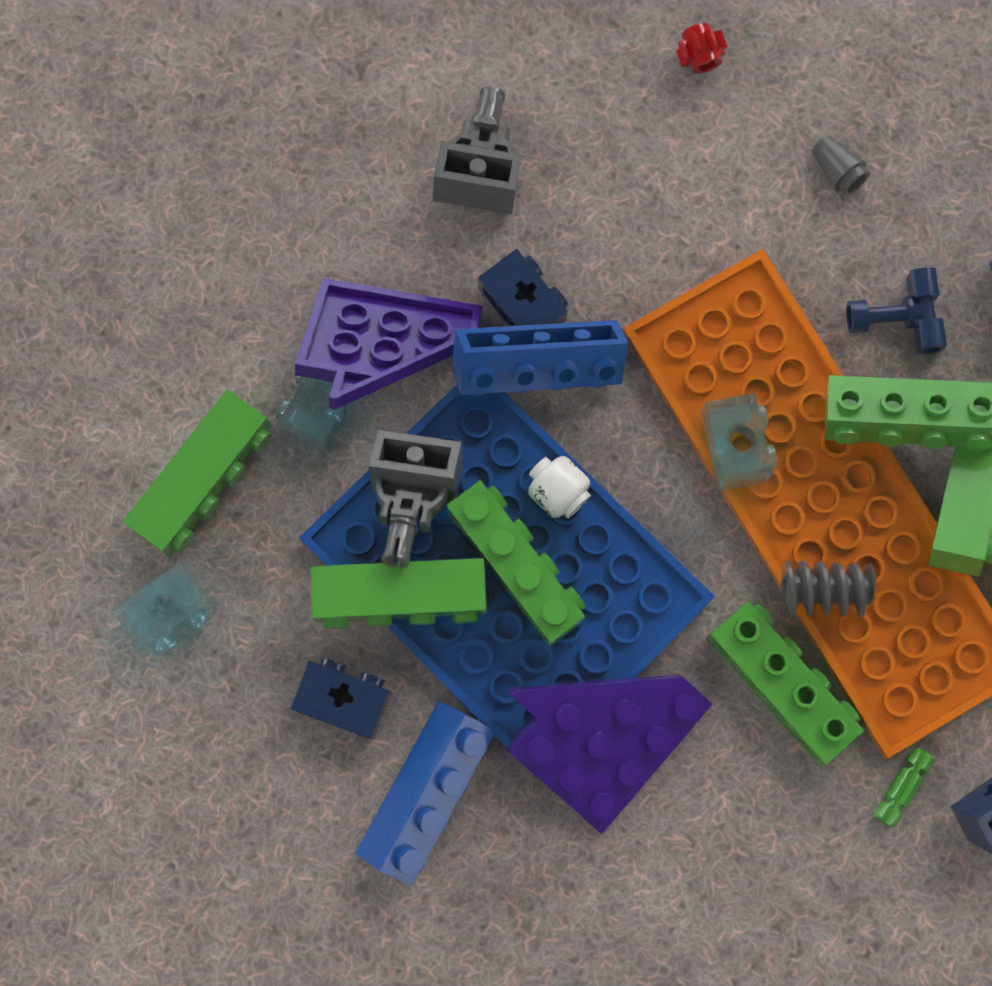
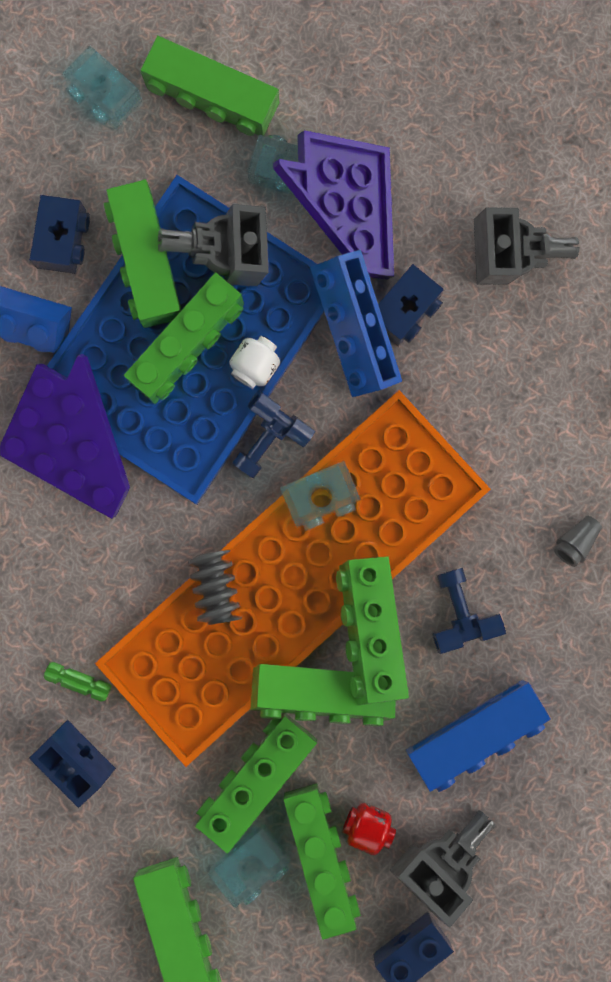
camera: 80 degrees right, 5 degrees up
(637, 480) = (276, 425): none -> dark blue bar
(785, 684) = (137, 572): bright green brick -> none

